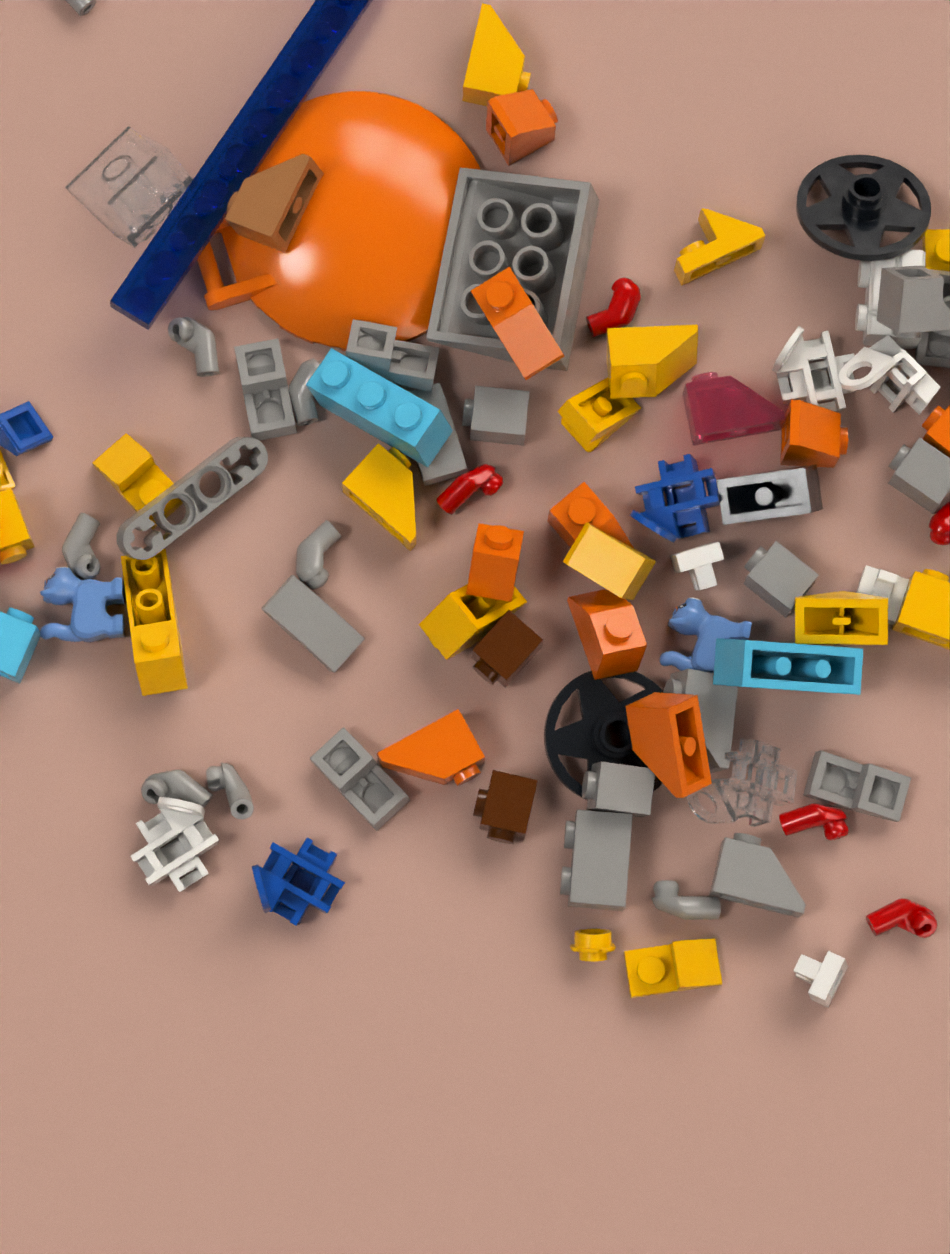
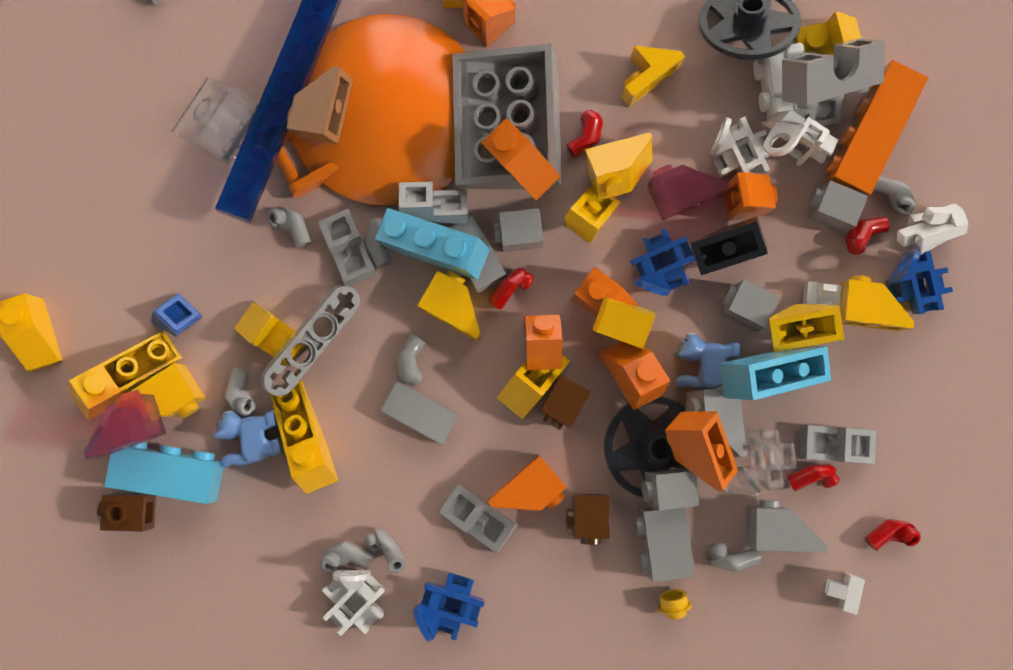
camera: 10 degrees left, 5 degrees up
(672, 967) = (735, 607): yellow slope -> none
(699, 564) = (689, 307): white tile -> none

